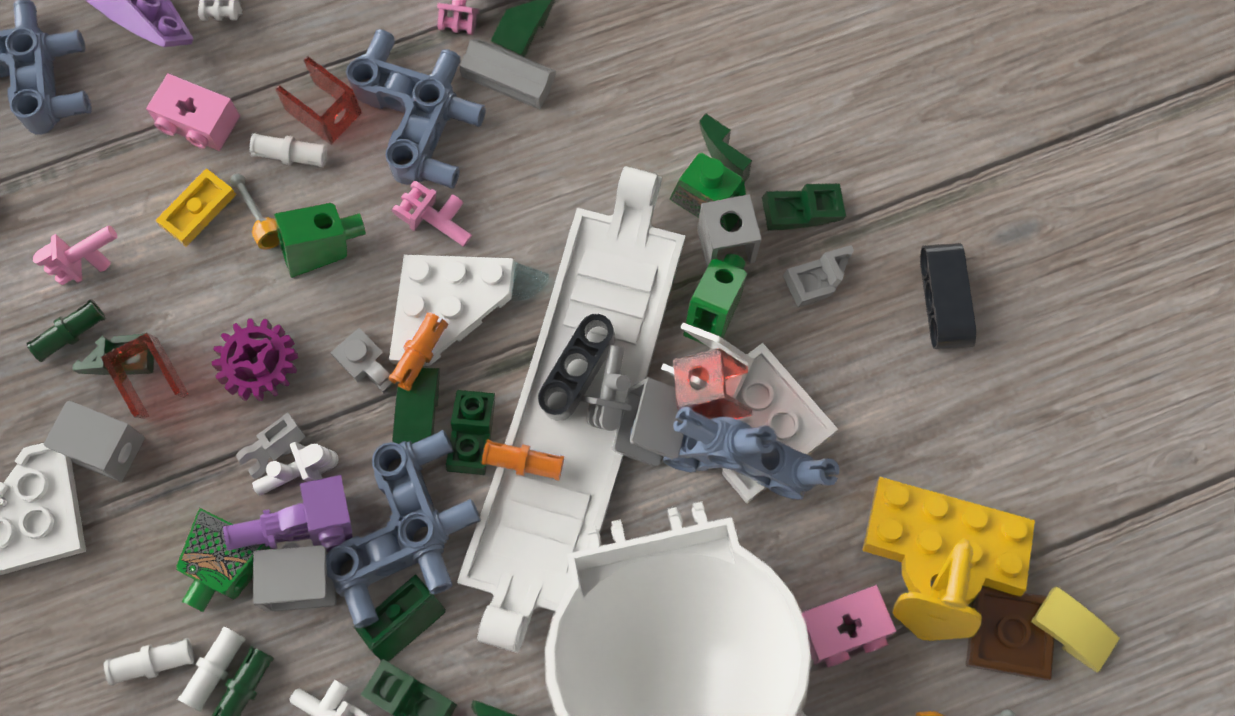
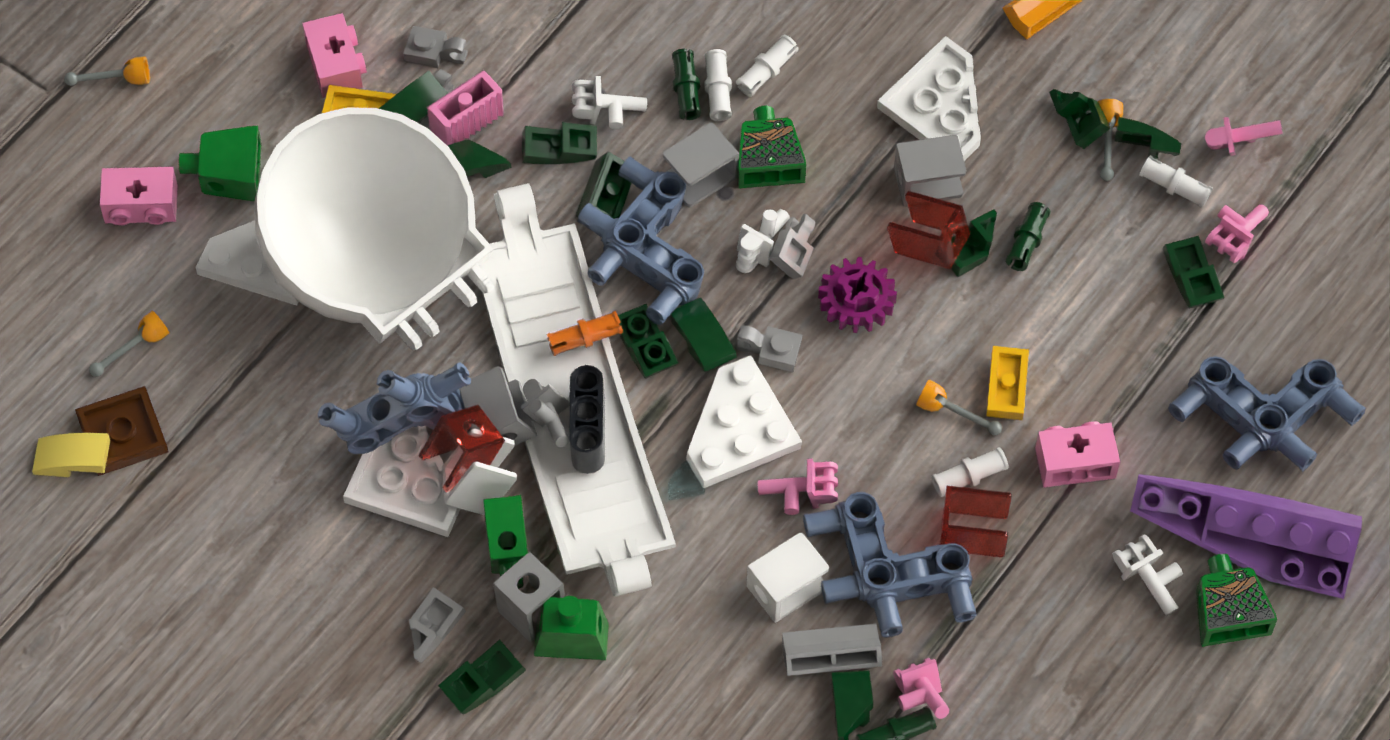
camera: 145 degrees right, 10 degrees down
(66, 260) = (1073, 283): bright pink arm -> none
(315, 236) = (881, 403): green torso -> none
(320, 518) = (708, 201): medium lavender brick -> none
(418, 351) = (725, 361): orange pin -> none
(501, 138) = (787, 577): none -> white piece
(717, 141) = (576, 675): dark green slope -> none
(862, 609) = (256, 358): bright pink brick -> none
(948, 296) = (308, 662): black beam -> none
(949, 543) = (203, 459): yellow plate -> none

